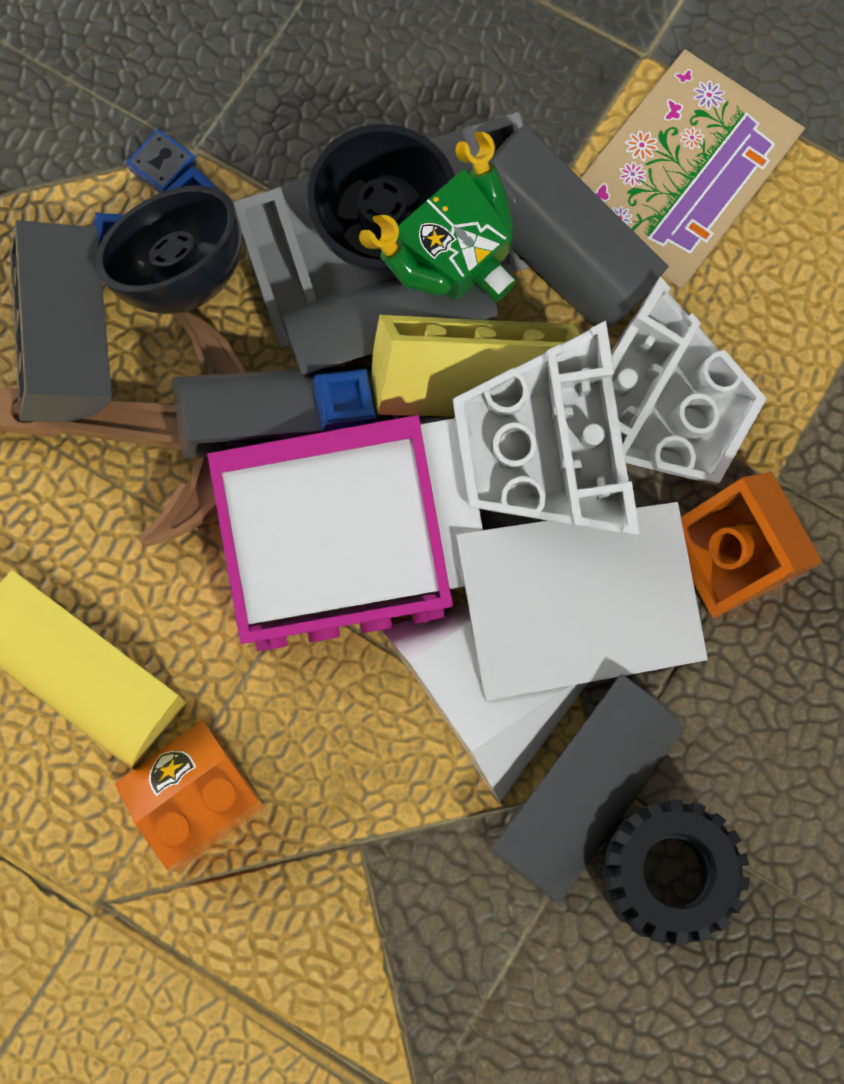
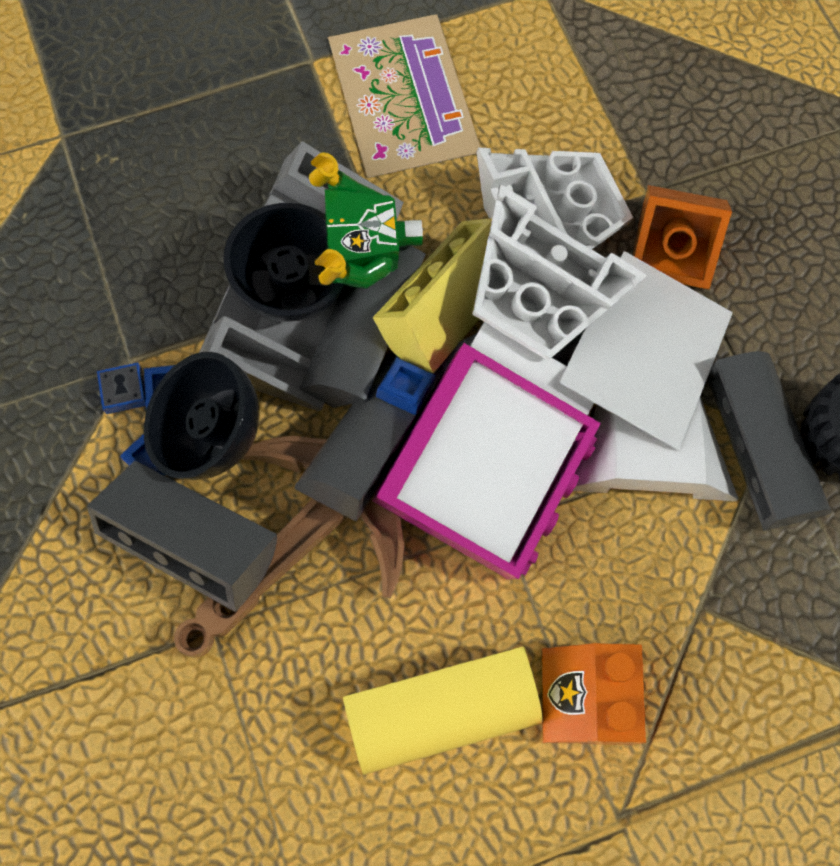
camera: 50 degrees left, 5 degrees down
(573, 233) = (420, 175): dark grey brick -> none

